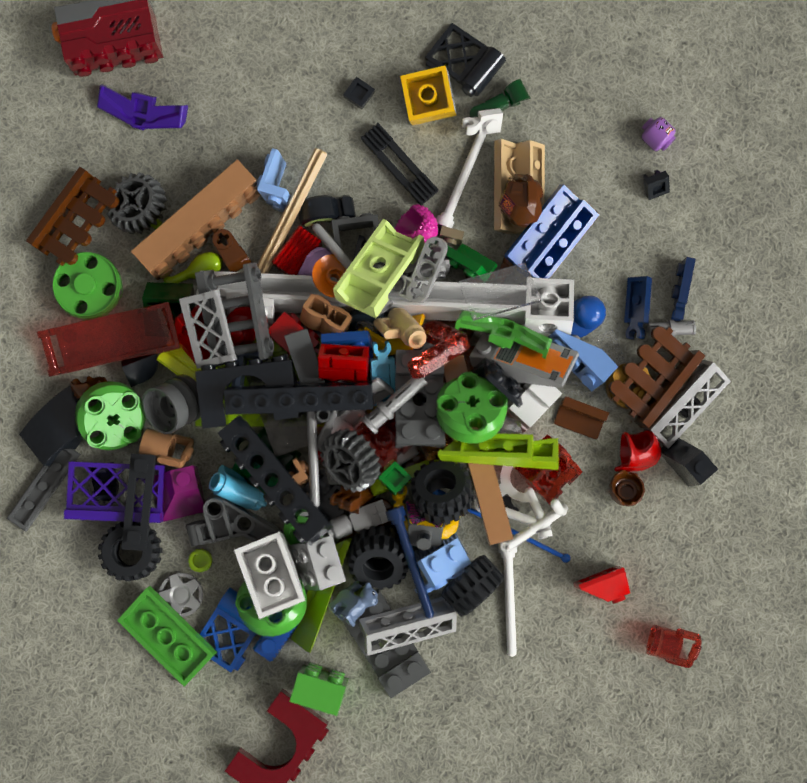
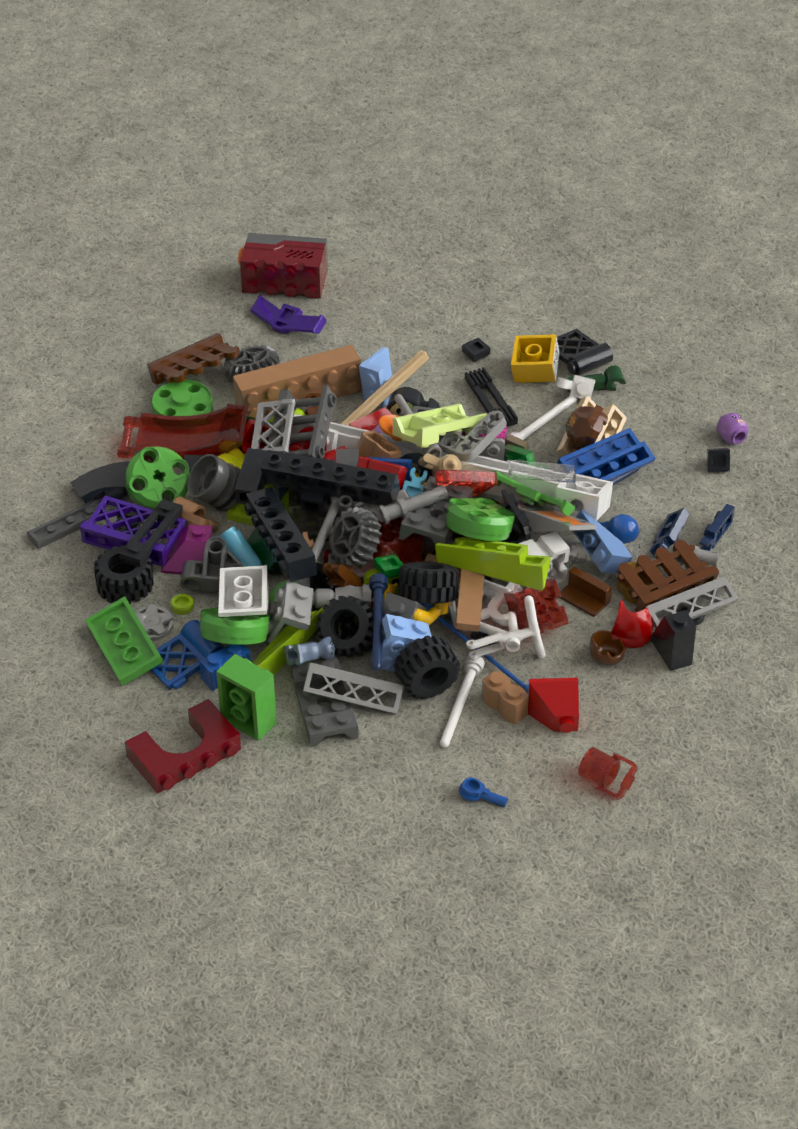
camera: 20 degrees right, 40 degrees down
(557, 588) = (505, 697): none -> medium nougat brick
(557, 703) = (473, 790): none -> blue plate

